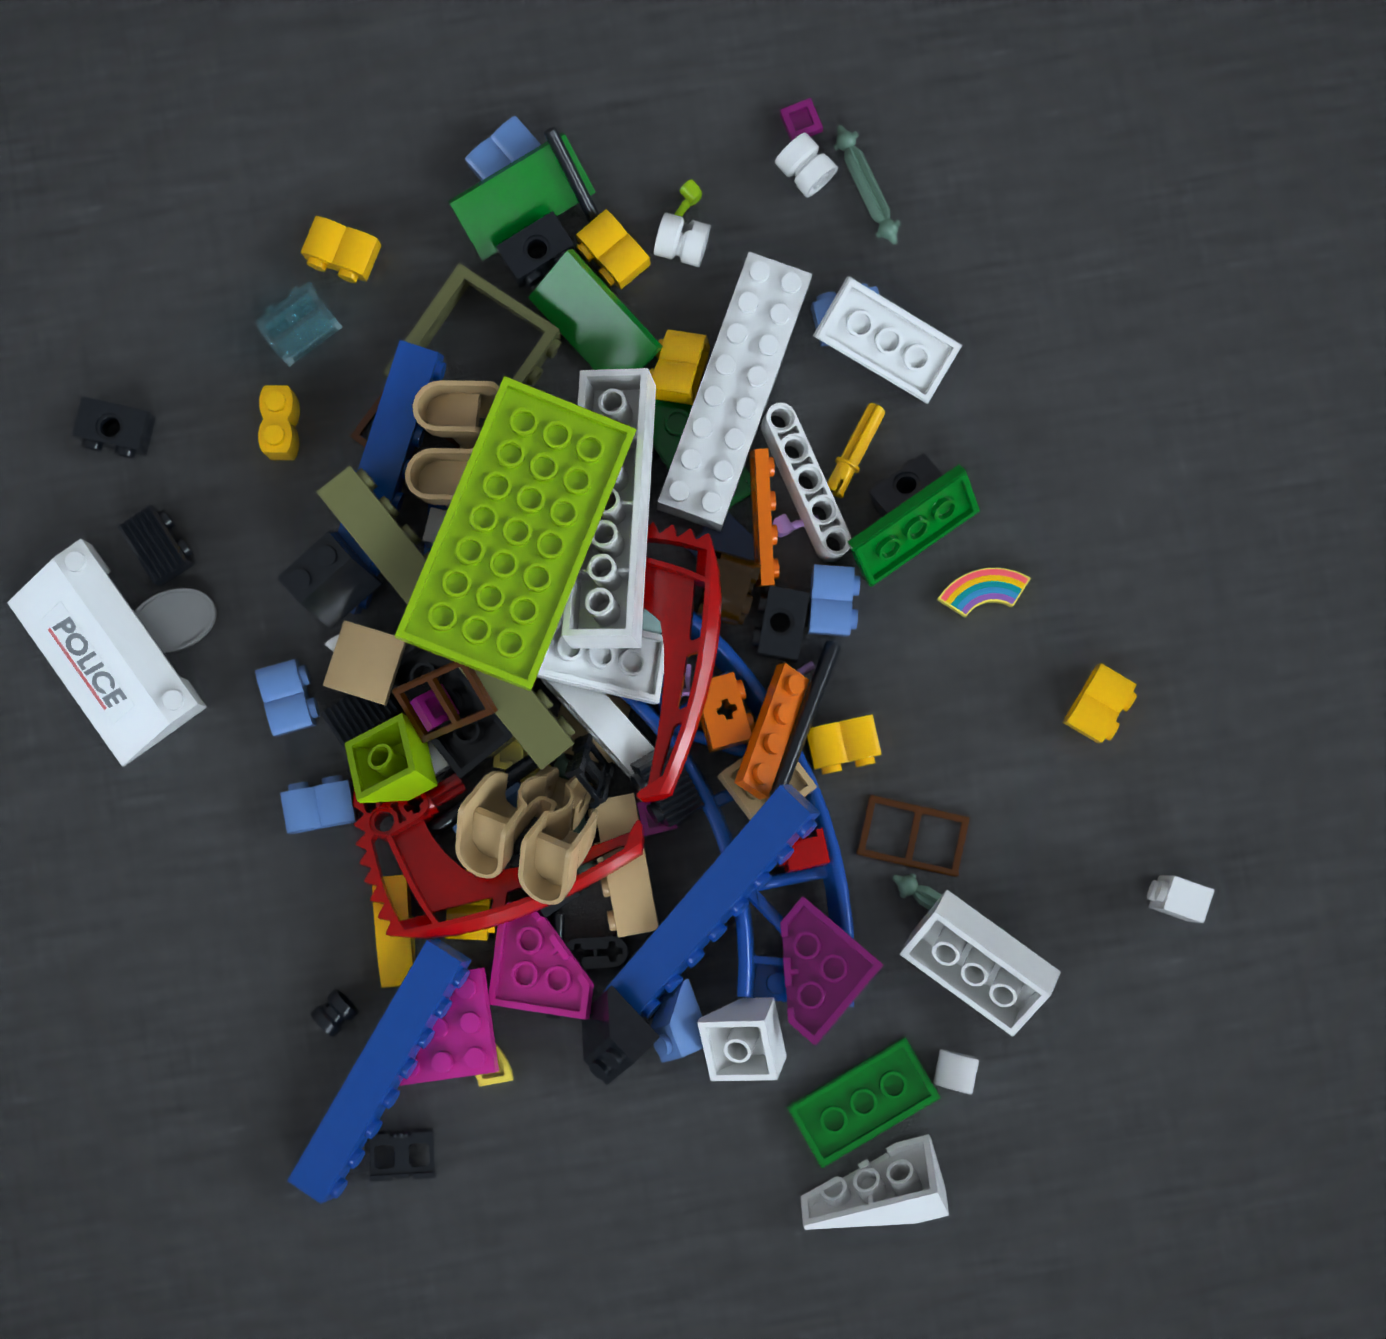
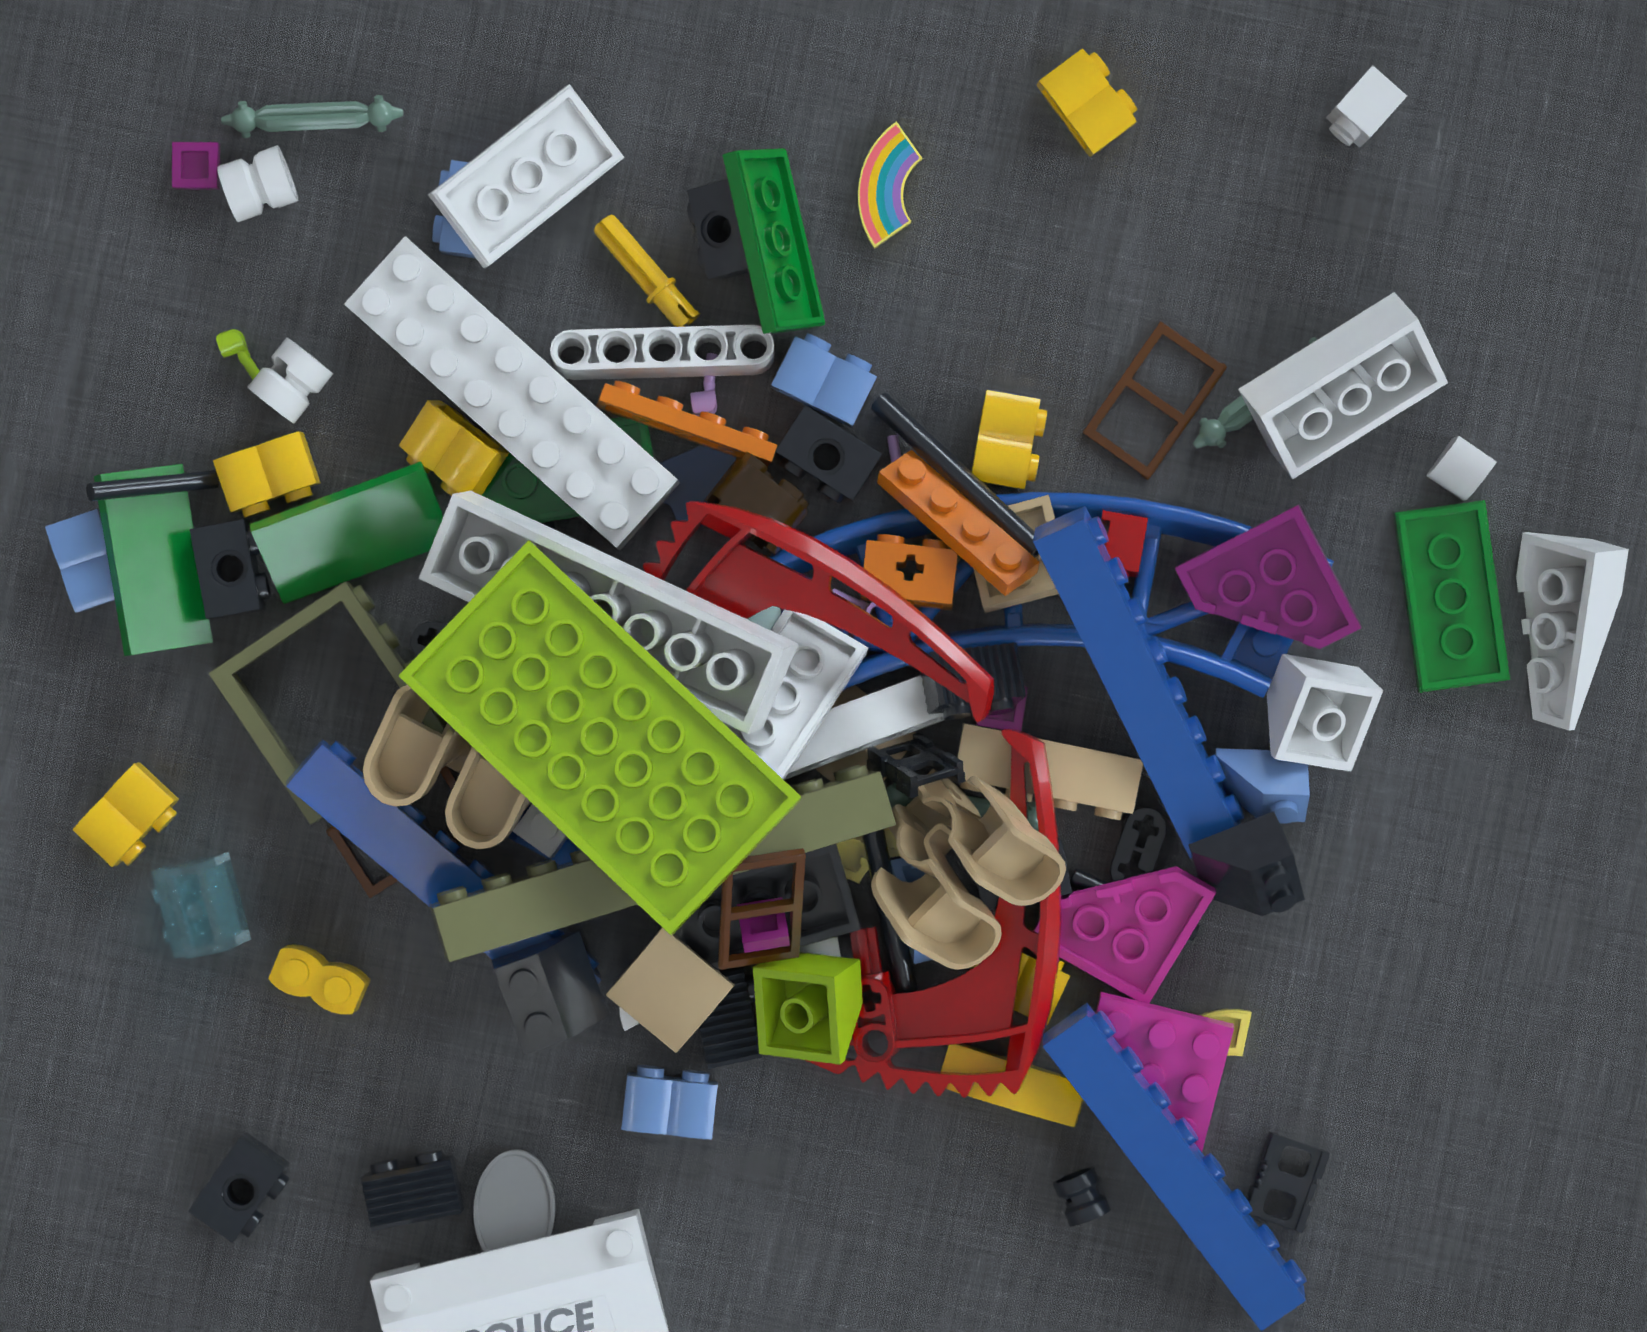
camera: 70 degrees left, 5 degrees up
(318, 806) = (820, 1116): medium blue brick -> none

